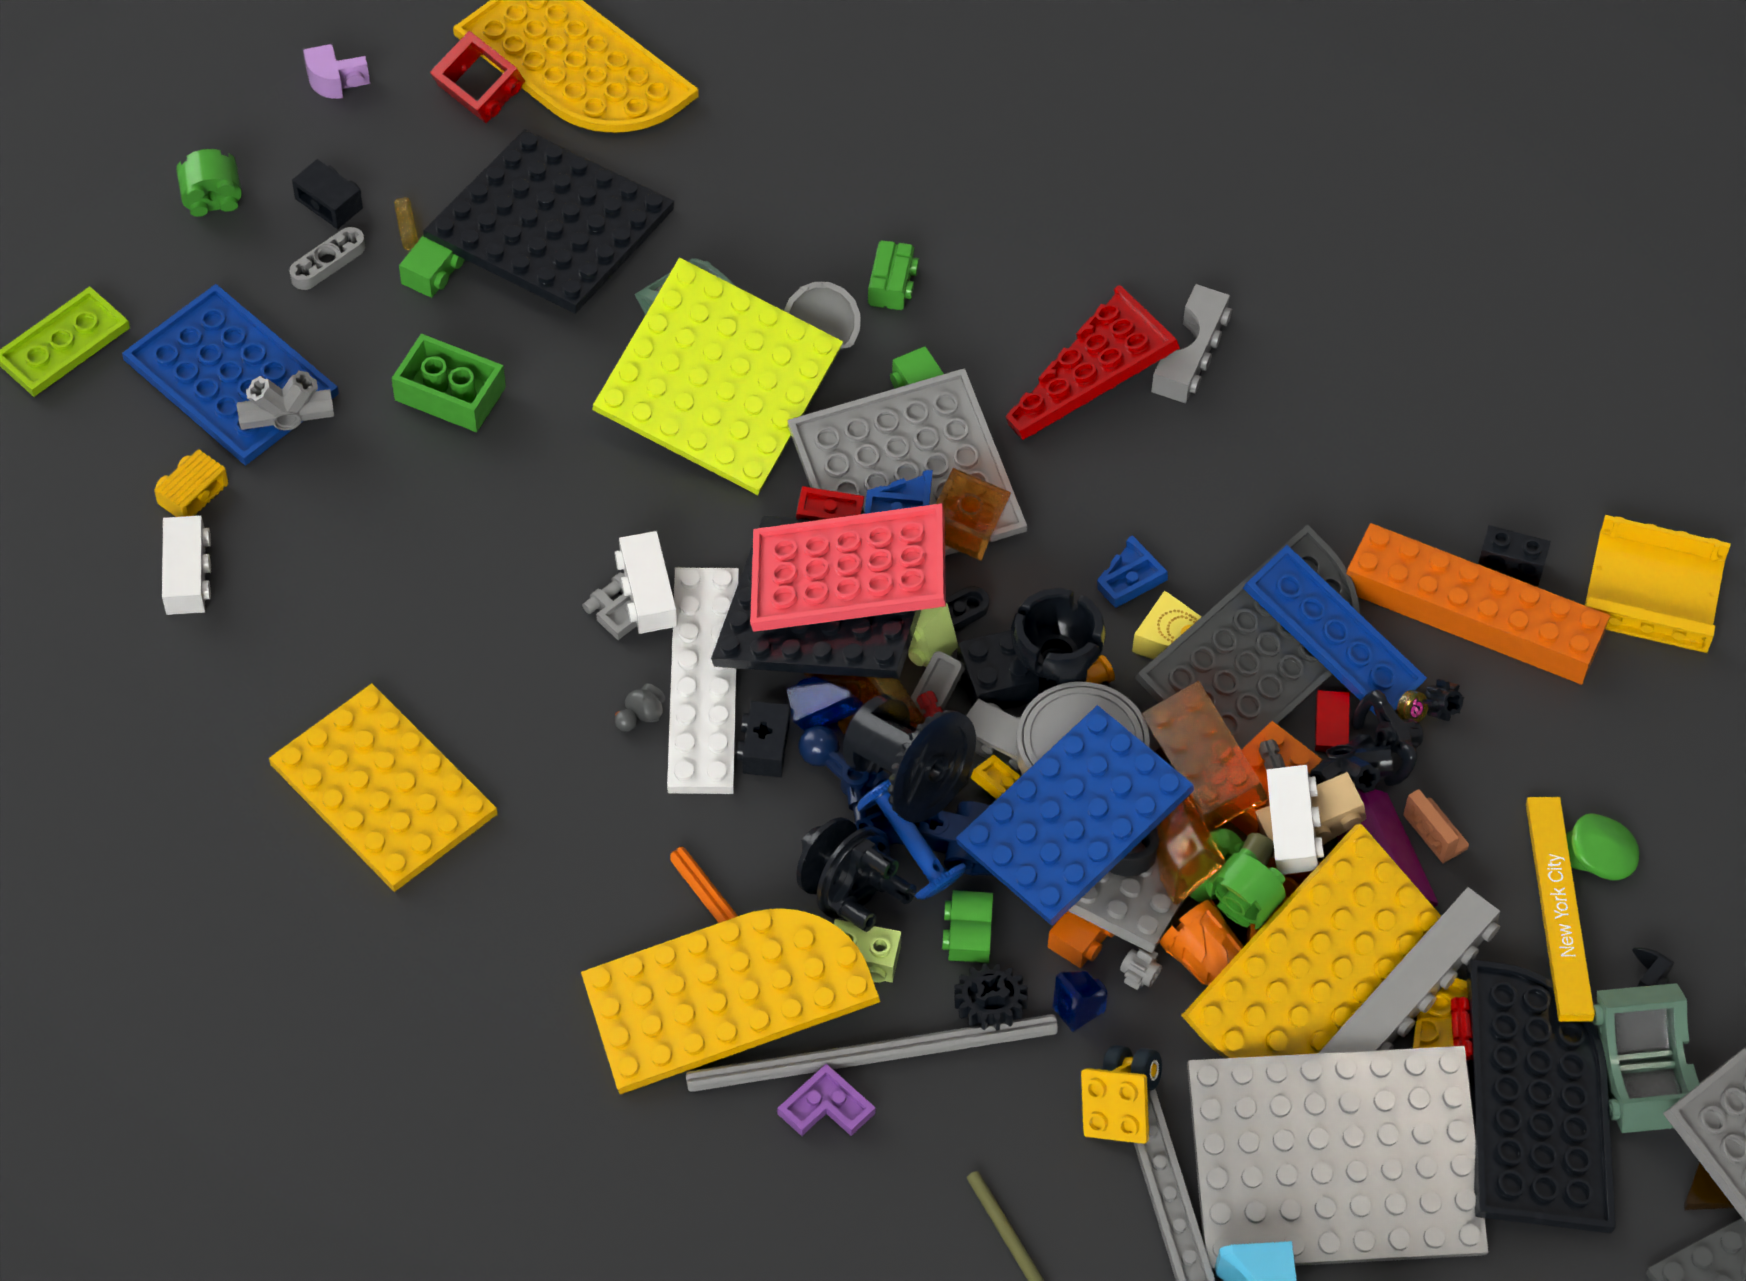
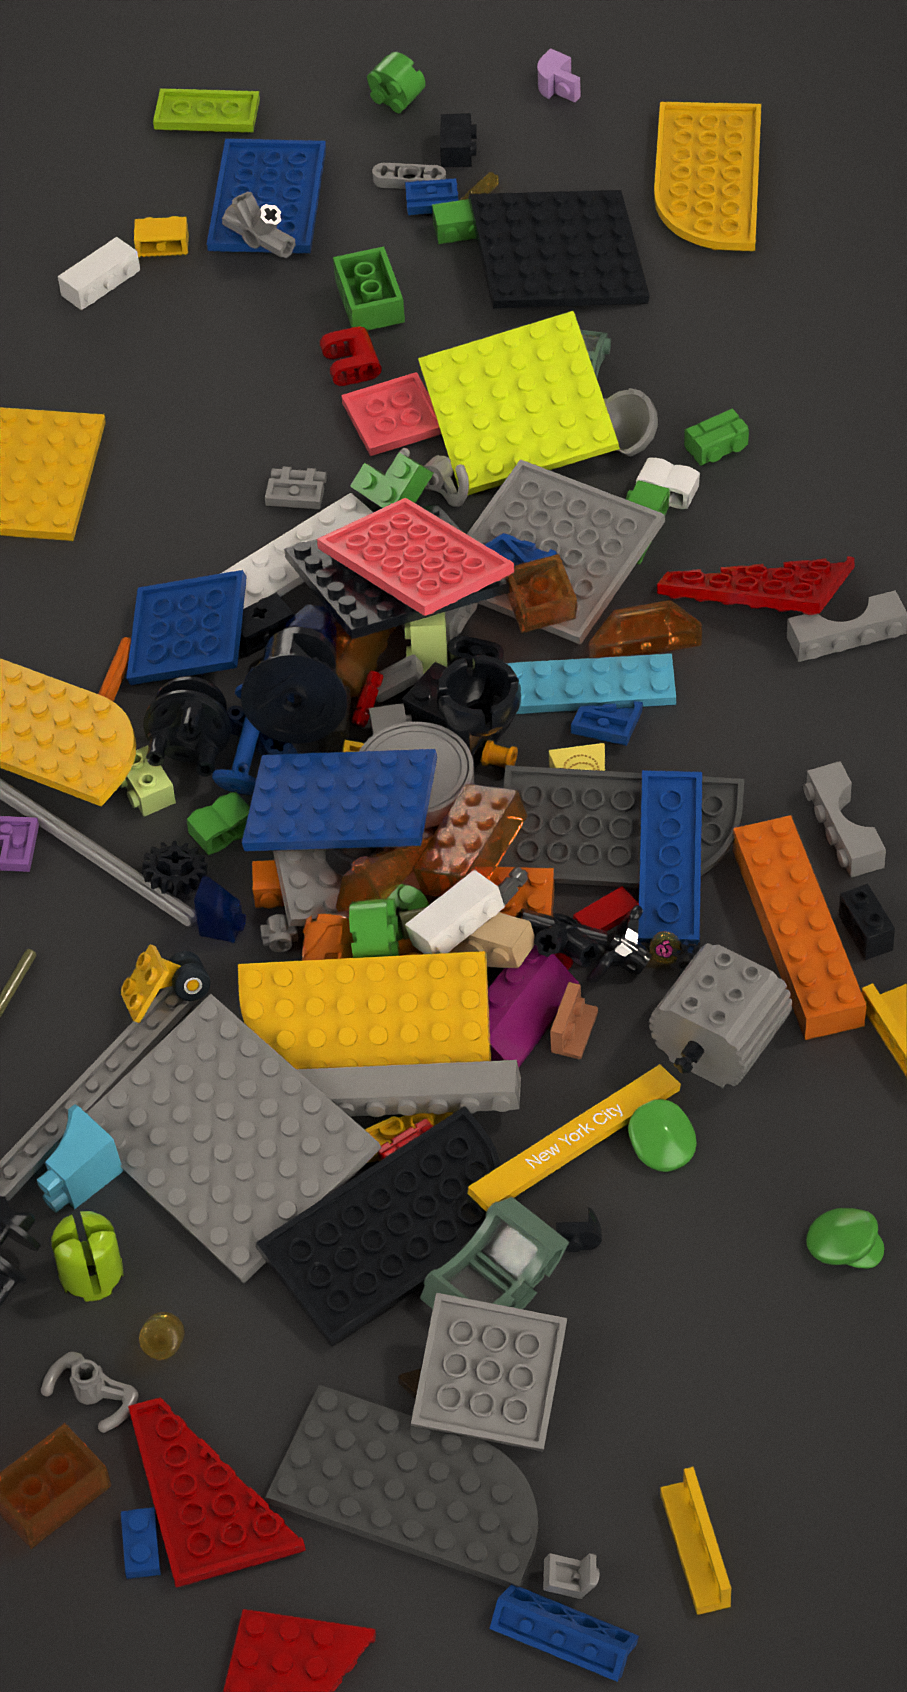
camera: 55 degrees right, 5 degrees down
(374, 260) = (422, 194): none -> blue plate
(460, 59) = (625, 123): red window -> none
(527, 447) = (362, 352): none -> red connector
(612, 472) = (392, 414): none -> coral plate
(642, 705) = (223, 549): dark grey animal -> none
(646, 582) = (313, 480): white brick -> none
(721, 534) = (402, 480): none -> bright green brick
(722, 795) = (187, 627): none -> blue plate
(726, 495) = (441, 479): none -> light grey piece
(827, 504) = (471, 522): red plate -> none
(902, 339) = (680, 479): none -> white brick
(1060, 479) = (646, 631): none -> clear orange wedge
(1074, 548) = (596, 682): none -> medium azure plate
(1424, 507) = (856, 846): none -> light grey arch
(1540, 717) = (720, 1015): none -> light grey piece

